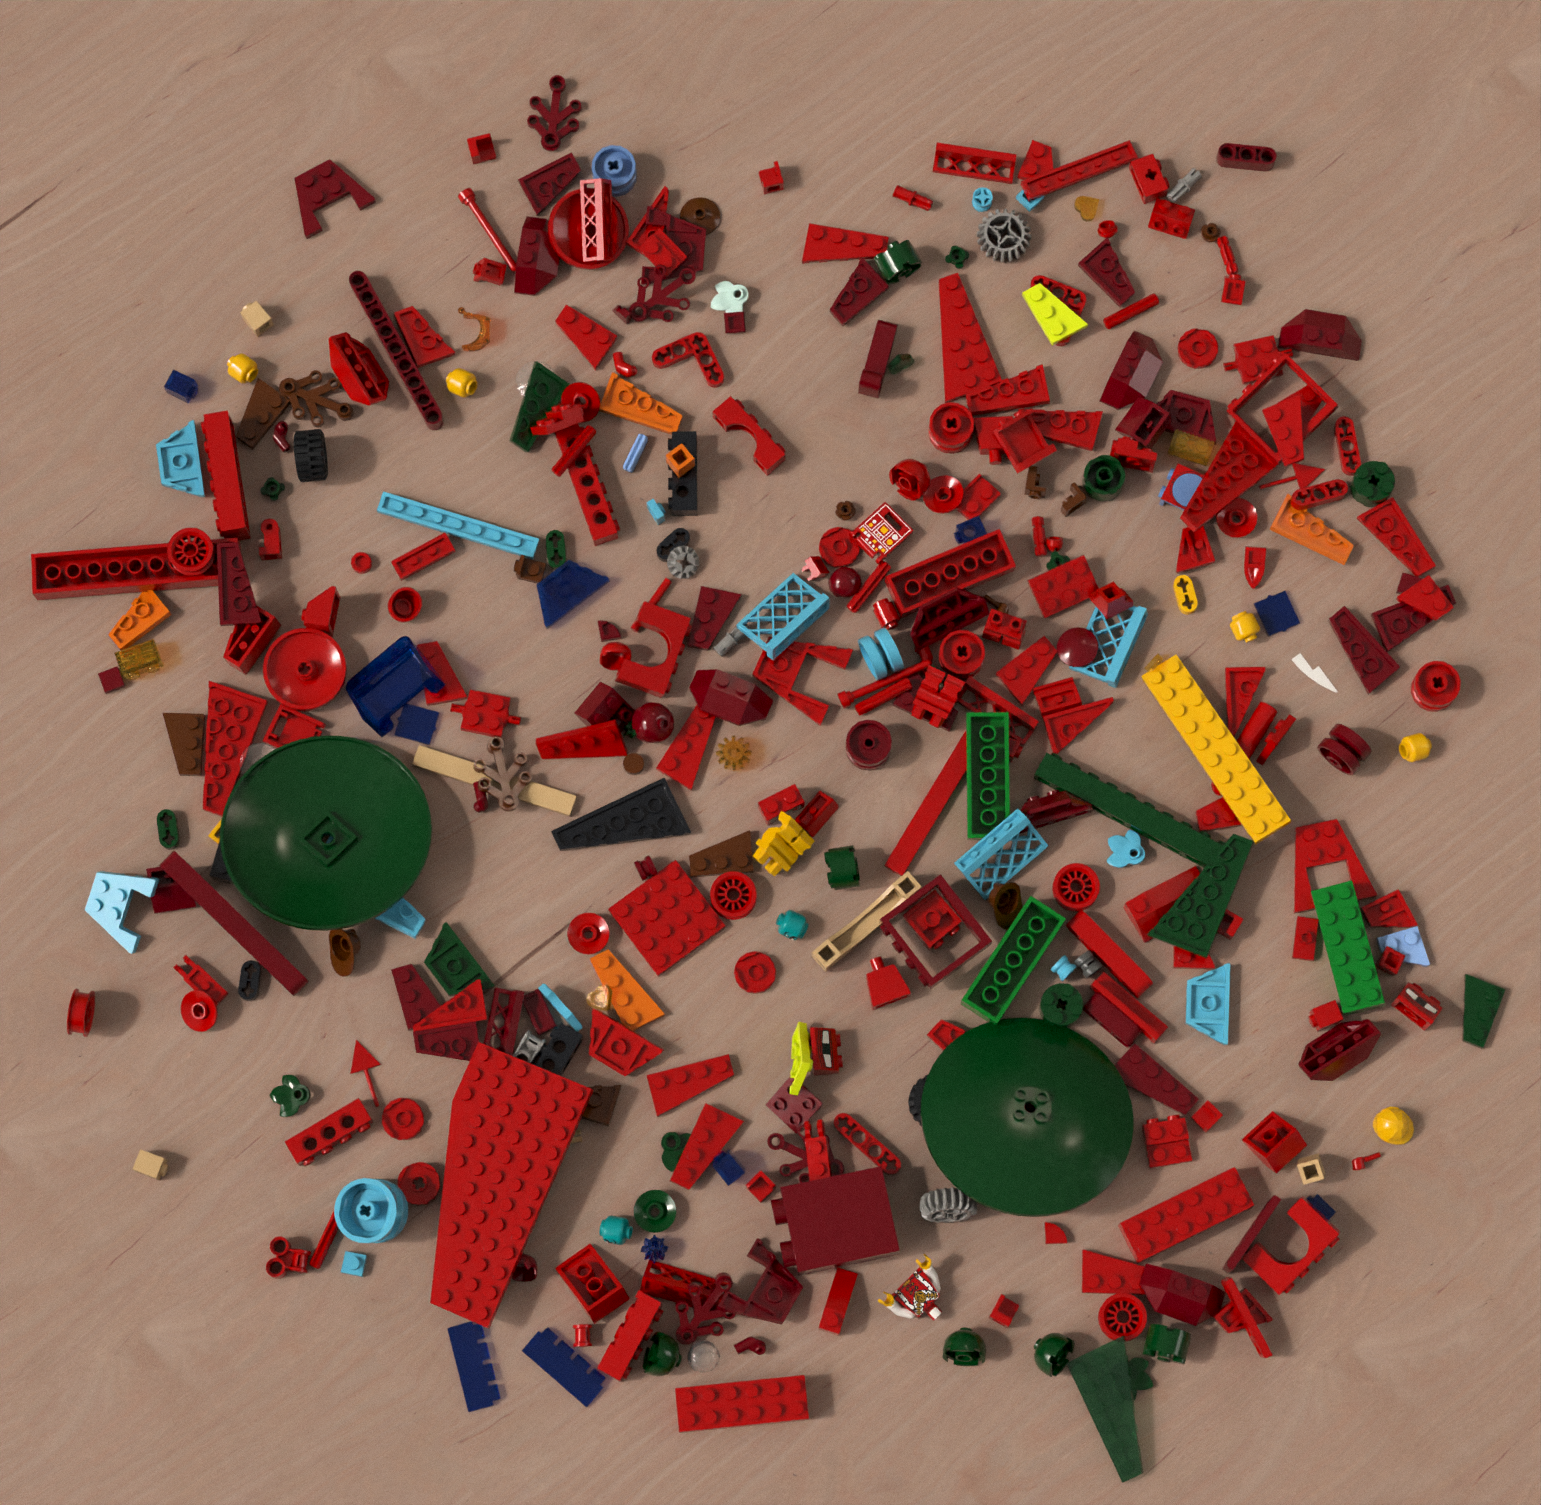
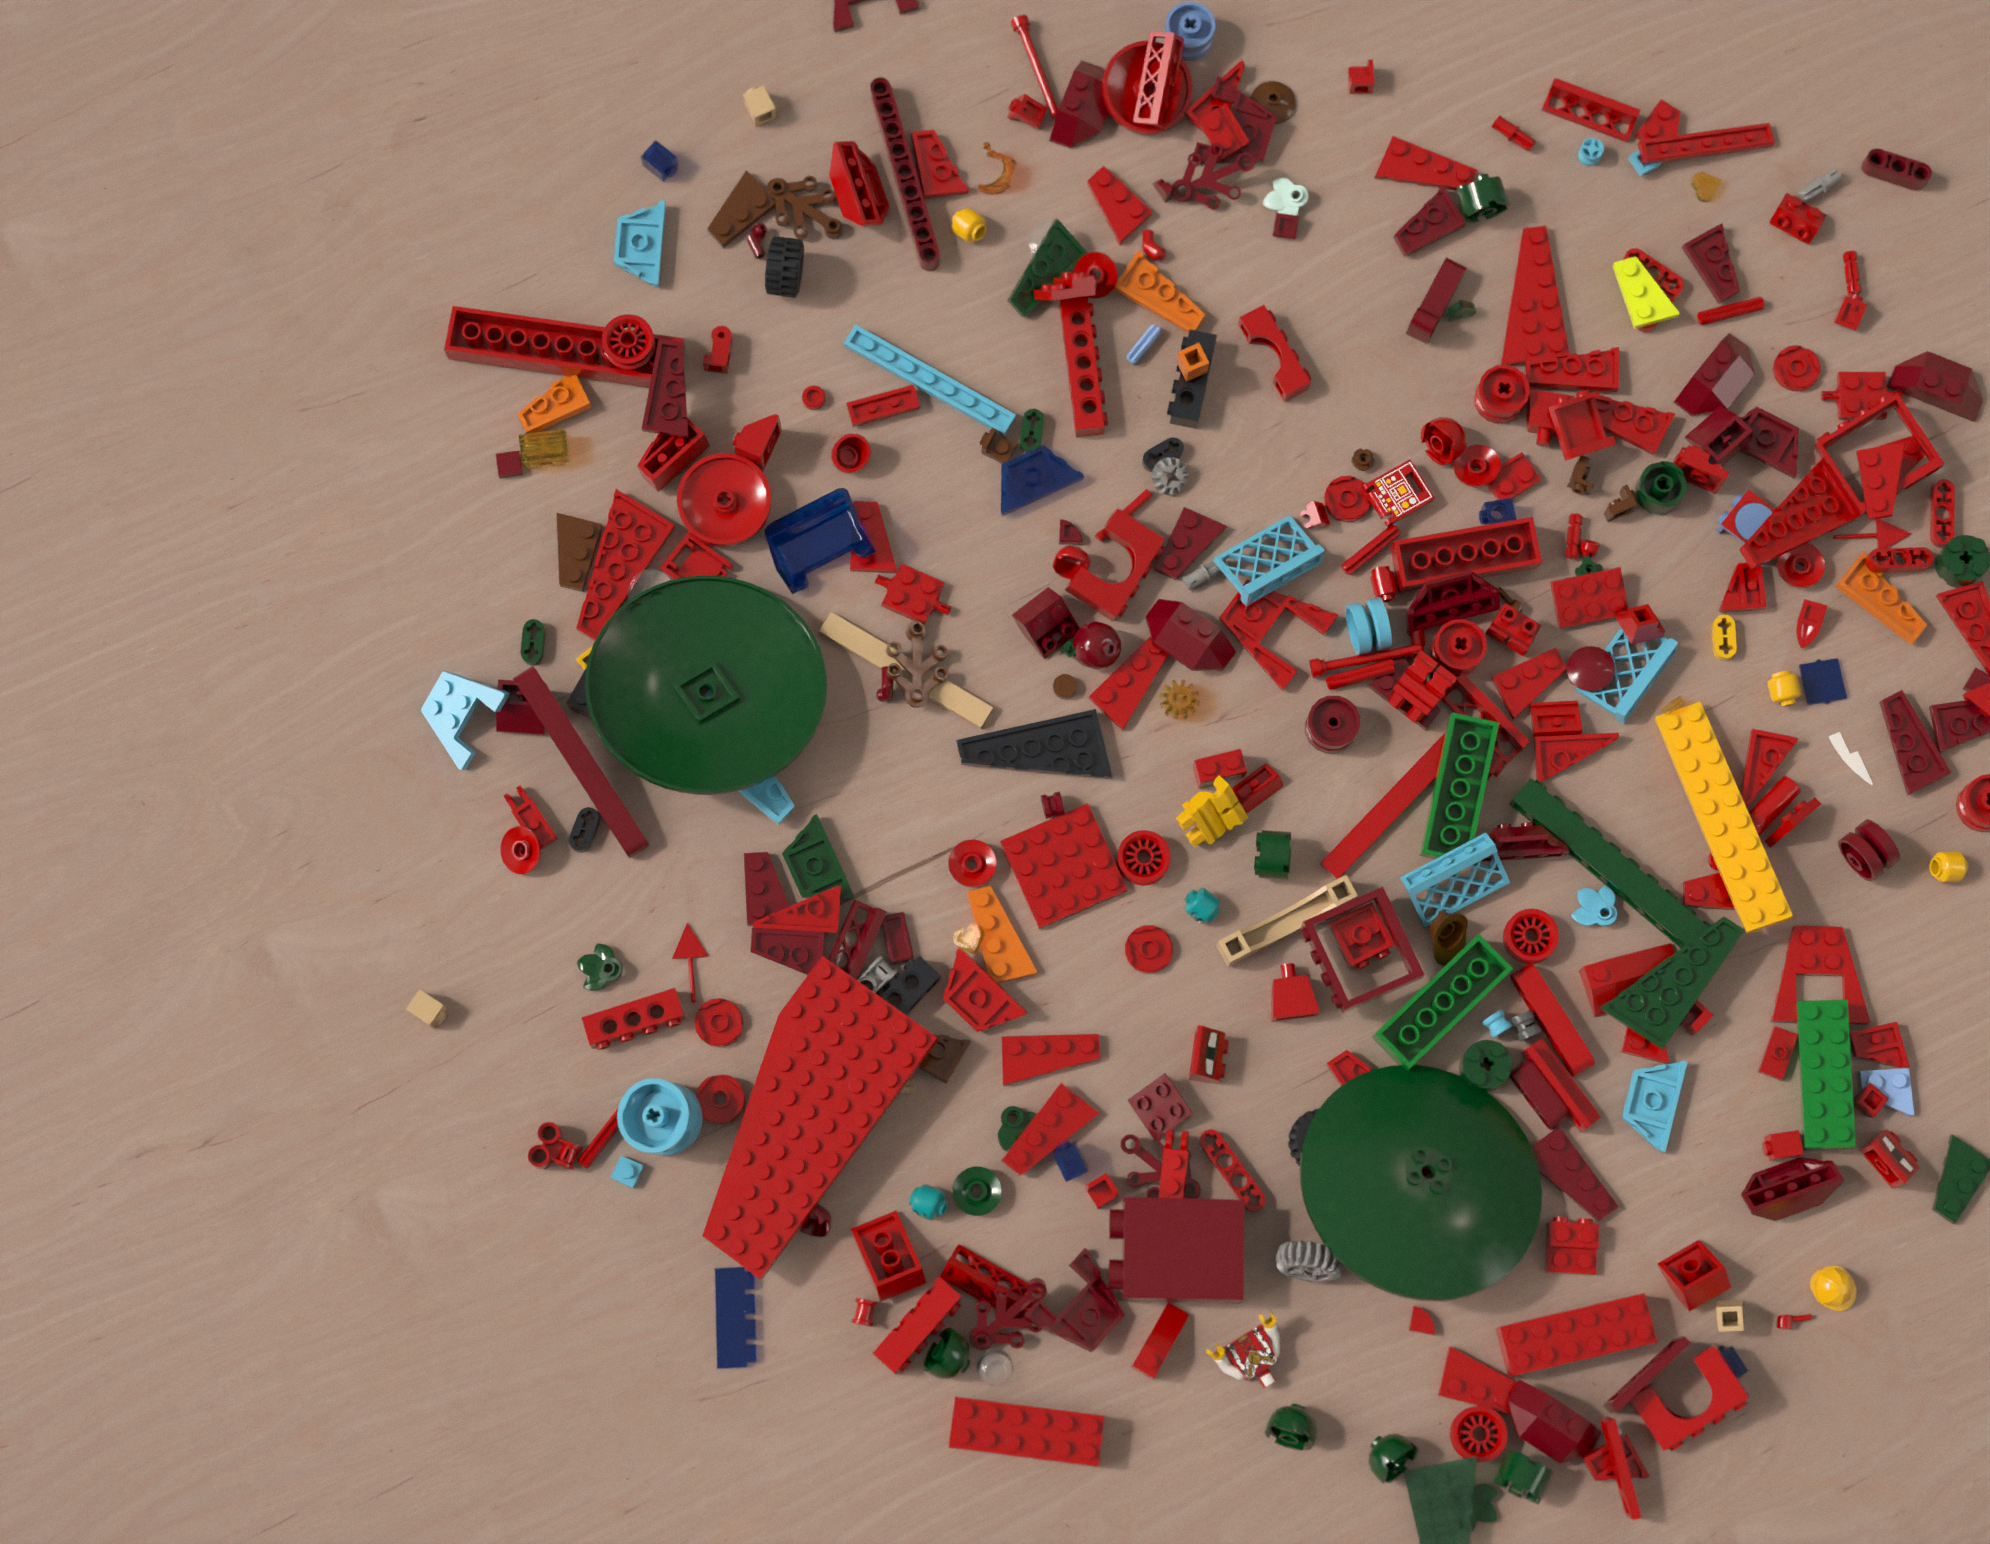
camera: 10 degrees right, 0 degrees up
(81, 1012) = (389, 822): red wheel -> none
(226, 476) = (686, 268): red brick -> none
(242, 368) = (731, 156): yellow head -> none
(266, 490) = (734, 288): dark green plate -> none
(343, 949) = (696, 817): reddish brown piece -> none
(416, 724) = (834, 588): clear blue piece -> none
(547, 182) = (1114, 27): dark red wing -> none
(559, 1365) = (830, 1339): clear blue windscreen -> none
(560, 1007) = (923, 939): medium azure tile -> none
(574, 450) = (1076, 326): red axle -> none
(589, 741) = (1018, 650): red wing -> none
(654, 1249) = (961, 1235): clear blue gear -> none
(656, 510) = (1153, 413): medium azure plate -> none
(691, 350) = (1230, 246): red beam -> none
(724, 857) = (1144, 812): reddish brown wing -> none
(752, 1344) = (1051, 1366): dark red arm -> none
(801, 1054) = (1180, 1053): neon yellow wing -> none
(844, 582) = (1345, 538): dark red hair -> none
(957, 251) = (1551, 202): dark green plate -> none
(1004, 1311) = (1345, 1396): red panel -> none
(1010, 239) = (1593, 183): light grey gear -> none
(1107, 229) = (1723, 214): red plate -> none
(1147, 188) = (1782, 169): red brick -> none
(1190, 447) = (1766, 475): clear yellow brick -> none
(1206, 1116) = (1623, 1228): red panel -> none
(1207, 236) = (1838, 249): reddish brown plate -> none

